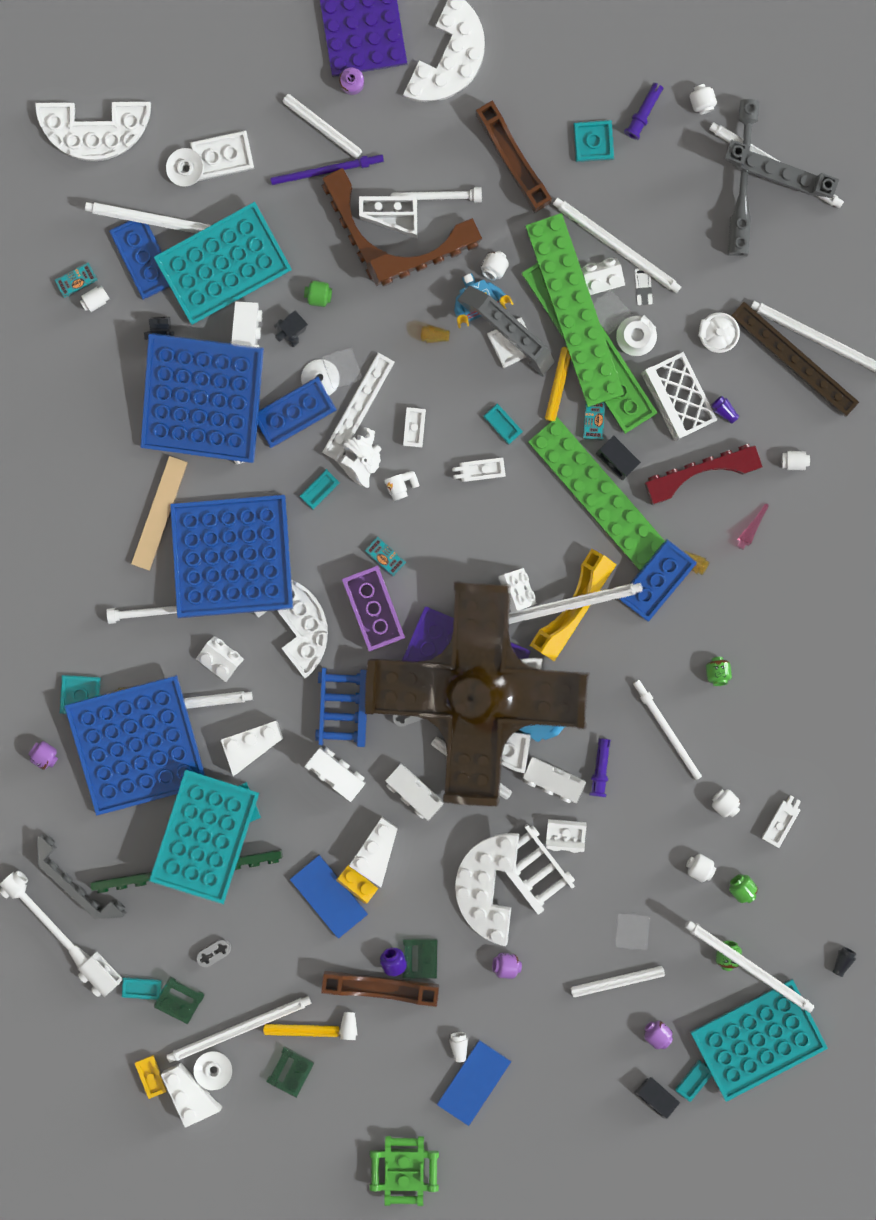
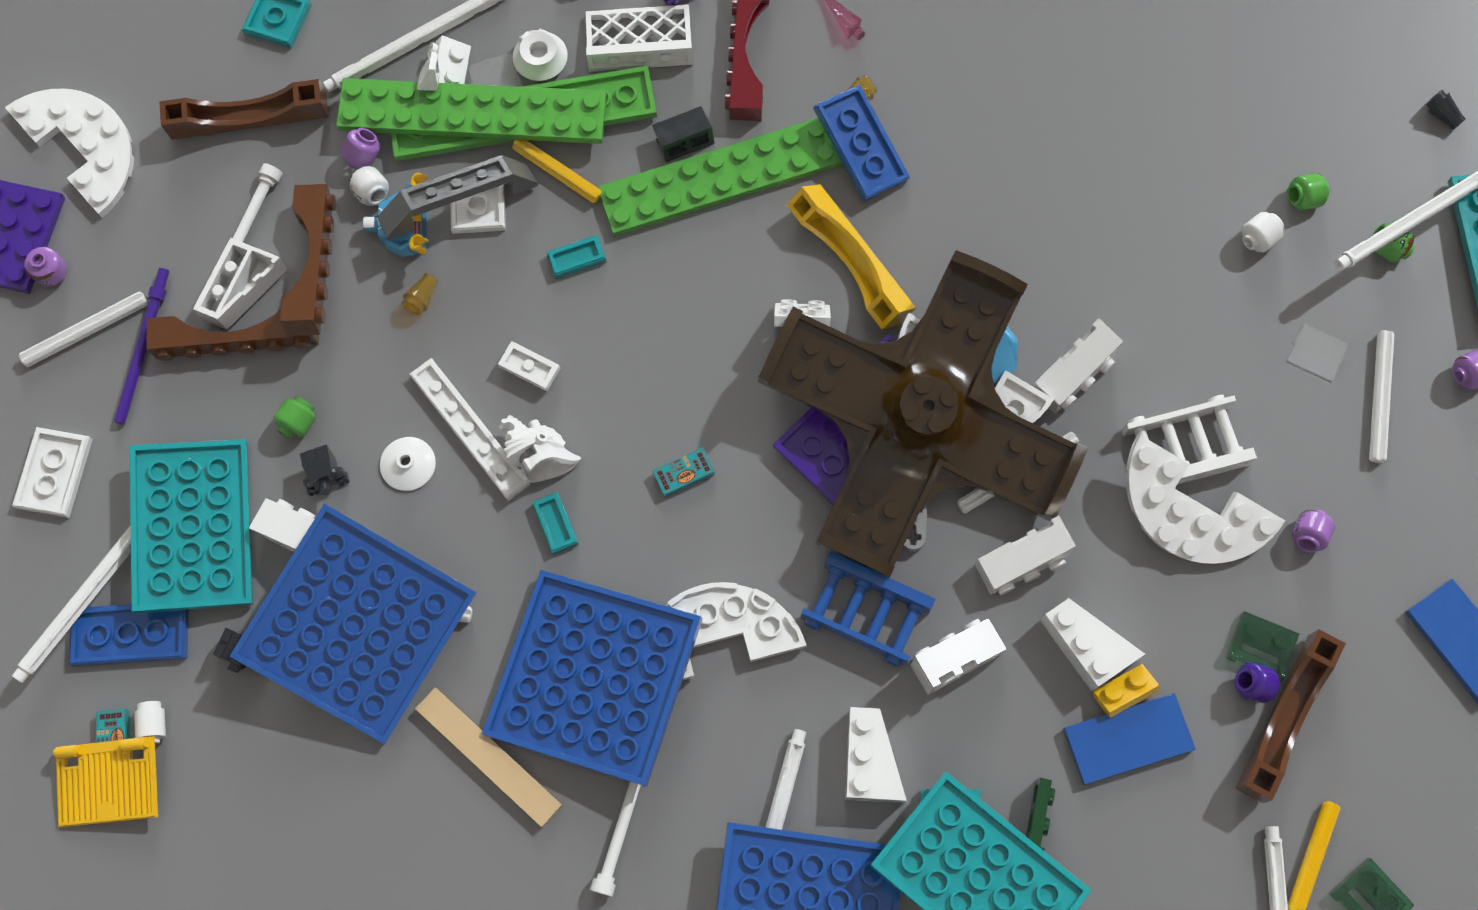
camera: 70 degrees left, 15 degrees down
(49, 291) = (106, 782): none -> yellow window
(177, 163) = (27, 524): white dish -> none
(219, 658) = (729, 755): white bracket -> none
(295, 412) = (436, 510): blue tile -> none
(342, 368) = (407, 428): clear piece -> none
(348, 1026) = (1331, 786): white cone -> none
(373, 608) = (748, 511): medium lavender brick -> none
(397, 487) = (594, 417): white piece -> none
(459, 1046) = (1406, 640): white cone -> none
(480, 470) = (623, 305): white hinge -> none
(517, 247) = (360, 148): none -> medium lavender head
(566, 835) = (1157, 384): white bracket -> none
(574, 602) = (850, 241): white piece -> none
(584, 271) = (429, 74): none -> white slope
(594, 422) = (624, 146): tile -> none
(599, 777) = (1081, 306): dark purple pin -> none
(643, 287) = (484, 29): sticker -> none
(646, 698) = (1010, 216): white bar -> none
(718, 671) = (1009, 116): bright green head -> none
(726, 803) = (1186, 170): white head -> none
(782, 822) = (1235, 115): white hinge -> none

